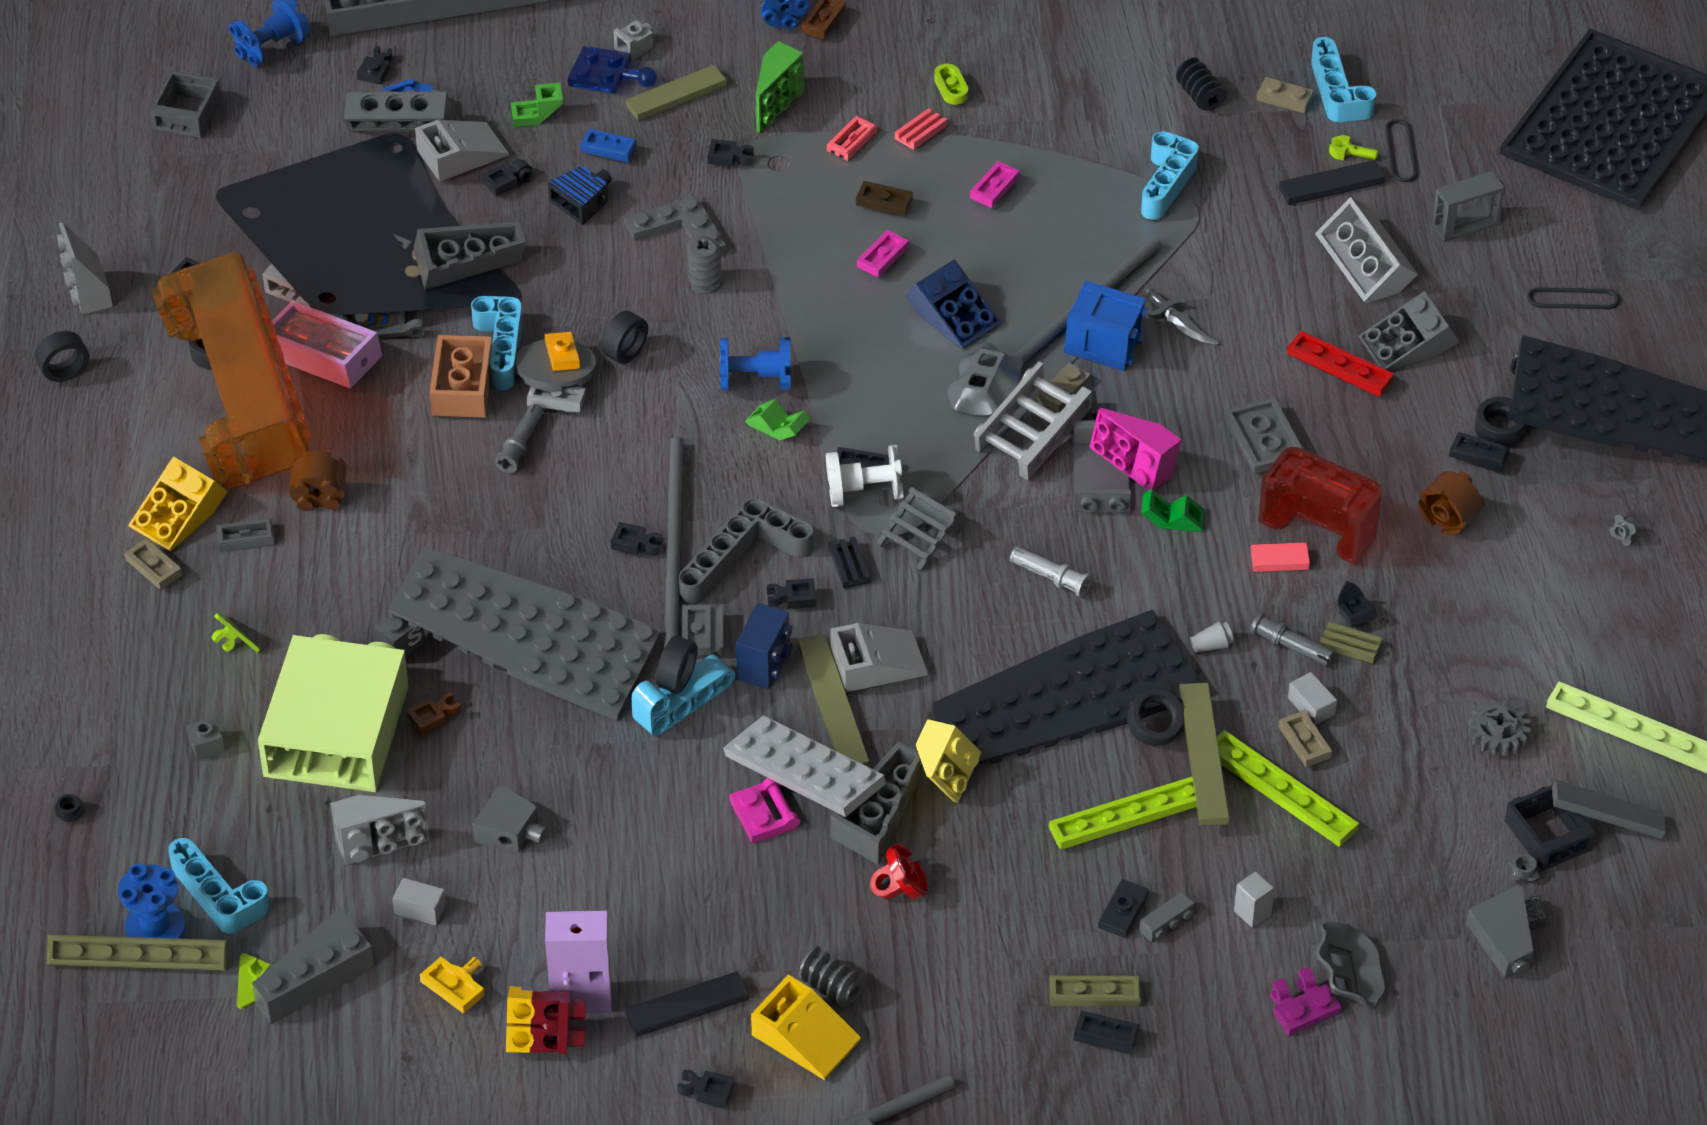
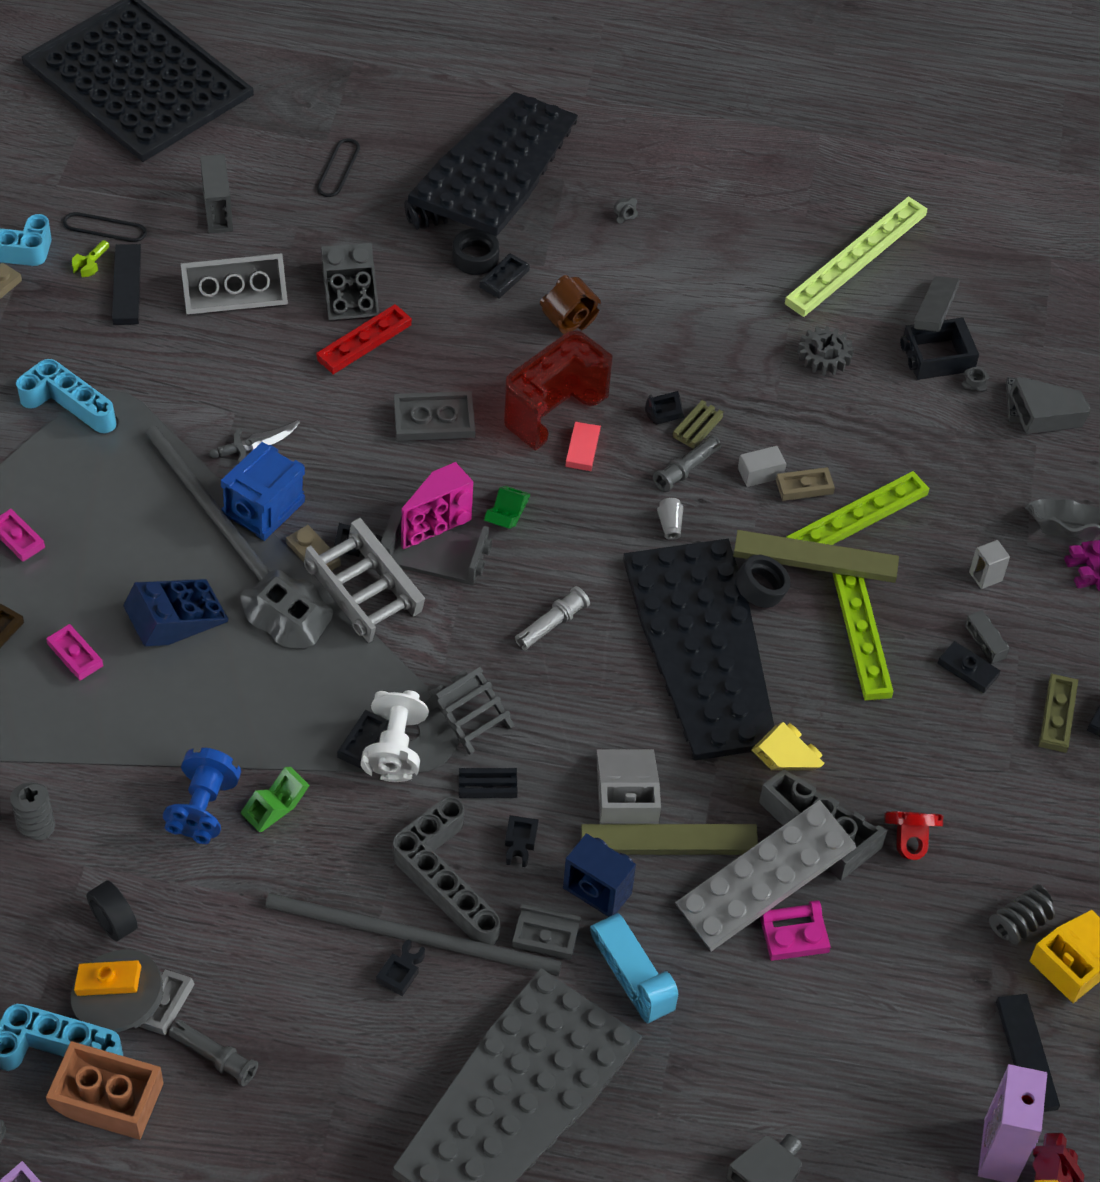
camera: 80 degrees left, 5 degrees up
(676, 664) = (626, 952): black tyre -> none

